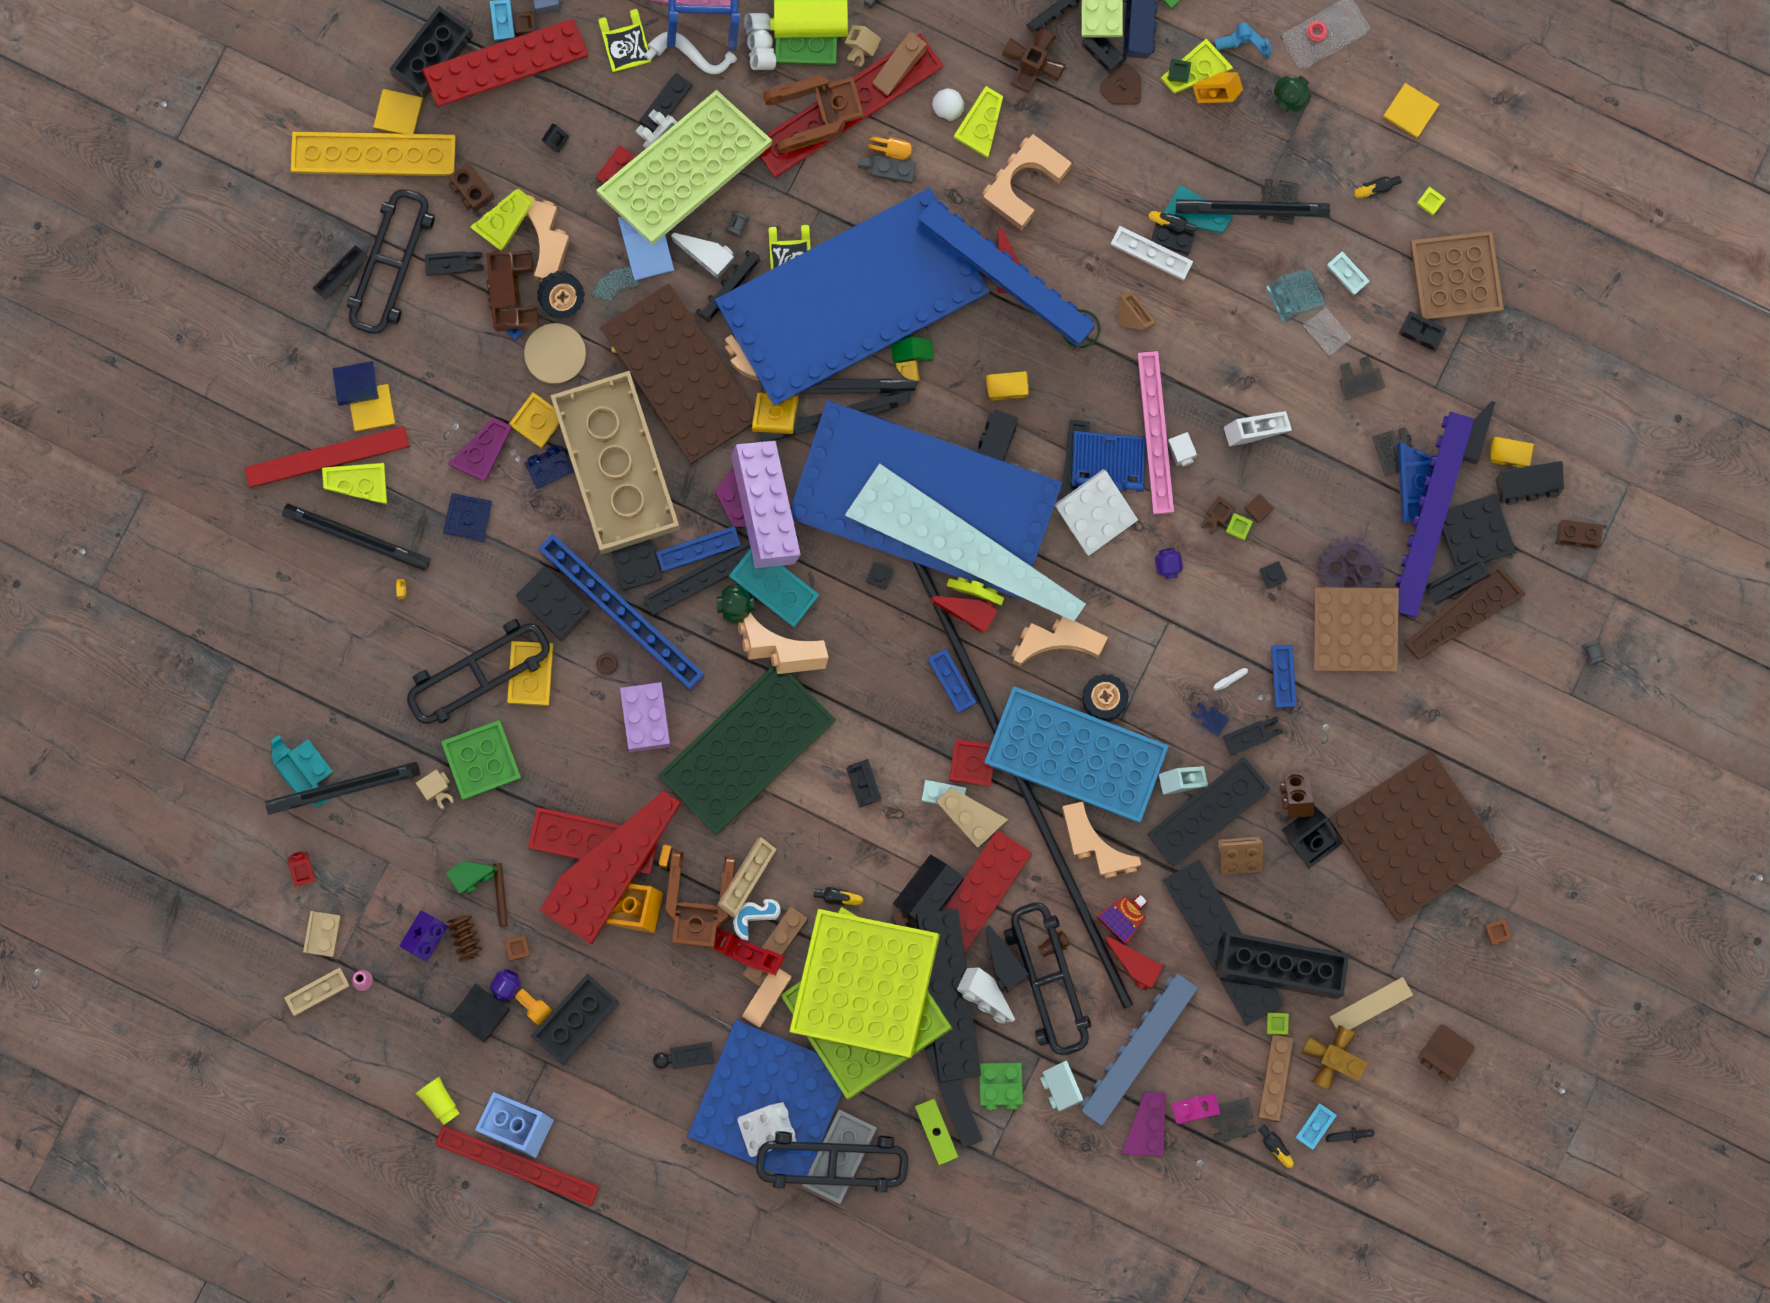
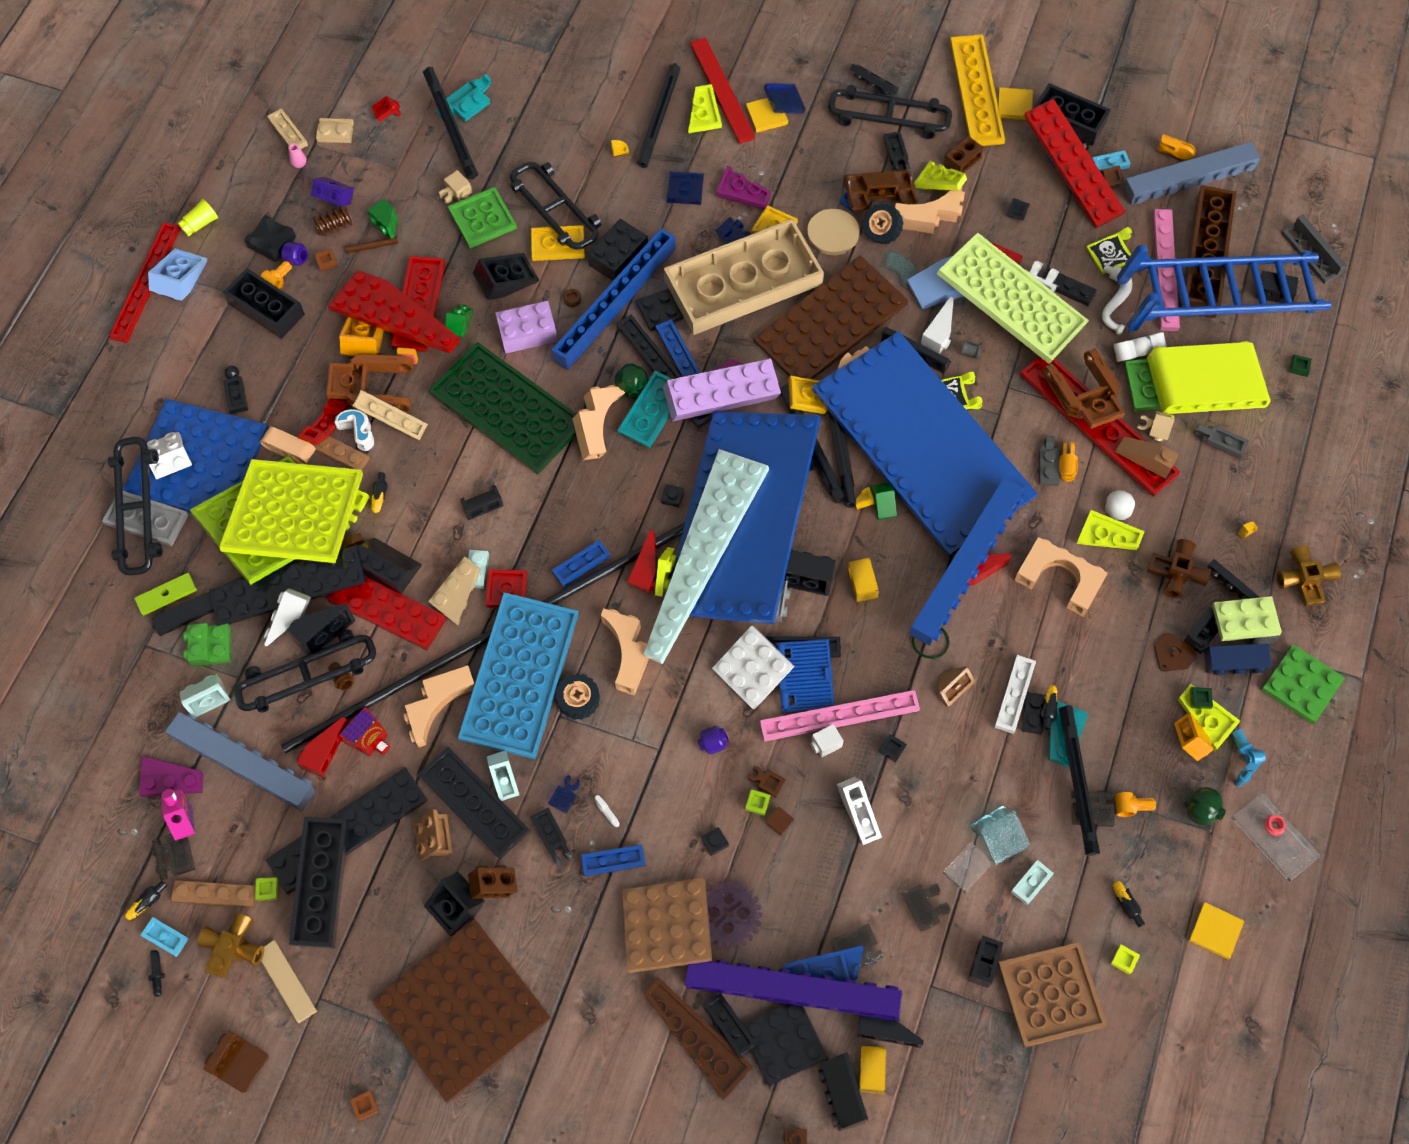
camera: 85 degrees right, 15 degrees down
(569, 737) = (504, 275): none -> black slope
(624, 794) = (459, 319): none -> green slope
(1196, 385) = (892, 748): none -> black plate
(1279, 165) = (1128, 804): none -> light orange axle

